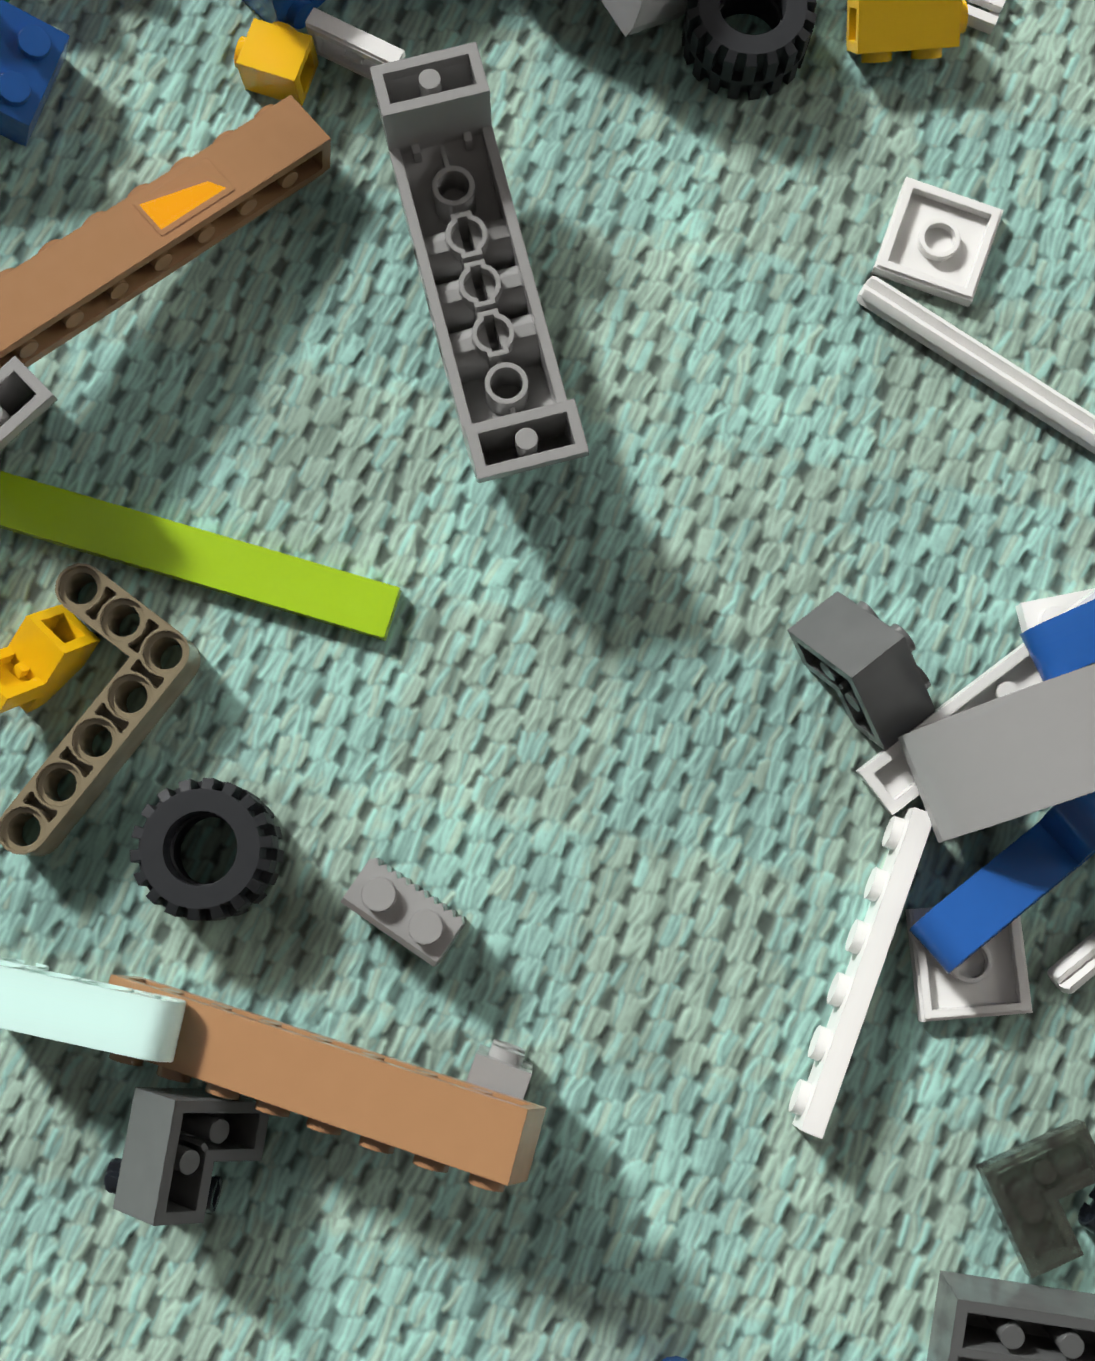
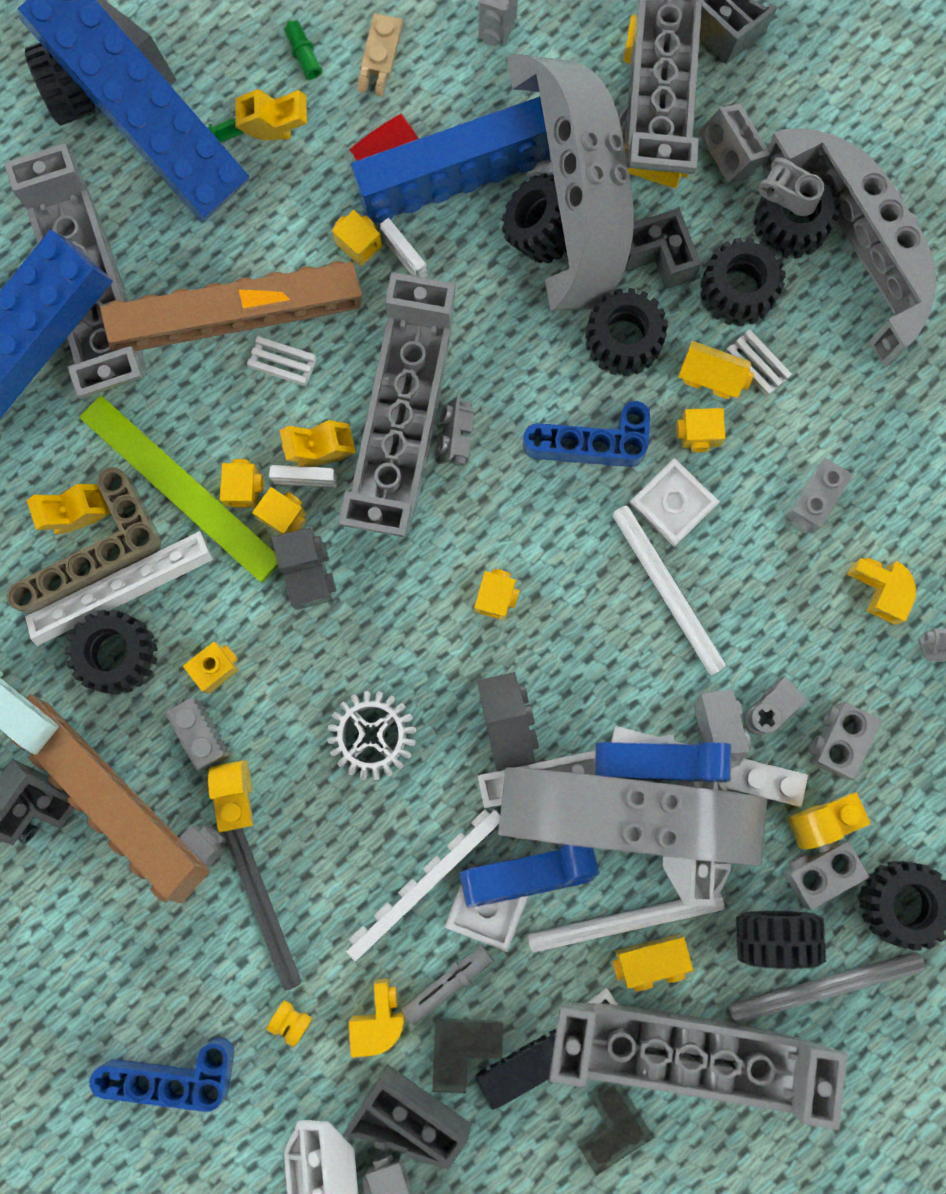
camera: 30 degrees right, 0 degrees up
(168, 749) = (118, 588): none -> white plate
(251, 276) = (284, 349): none -> white tile
(281, 504) = (240, 484): none -> yellow brick
(365, 519) = (280, 512): none -> yellow brick
(372, 448) = (303, 476): none -> white tile
(373, 391) = (318, 445): none -> yellow brick
(375, 798) = (212, 667): none -> yellow brick
(436, 575) = (302, 561): none -> dark grey brick
(505, 980) = (230, 789): none -> yellow brick
(558, 263) = (455, 418): none -> light grey hinge
(615, 1112) = (263, 909): none -> dark grey axle
(694, 797) = (359, 746): none -> white gear
(750, 491) = (496, 594): none -> yellow brick
(764, 203) = (585, 437): none -> blue beam
(764, 1284) = (289, 1023): none -> yellow wheel
(908, 1226) = (379, 1031): none -> yellow brick
(927, 115) = (701, 429): none -> yellow brick
(996, 1043) = (447, 985): none -> light grey pin

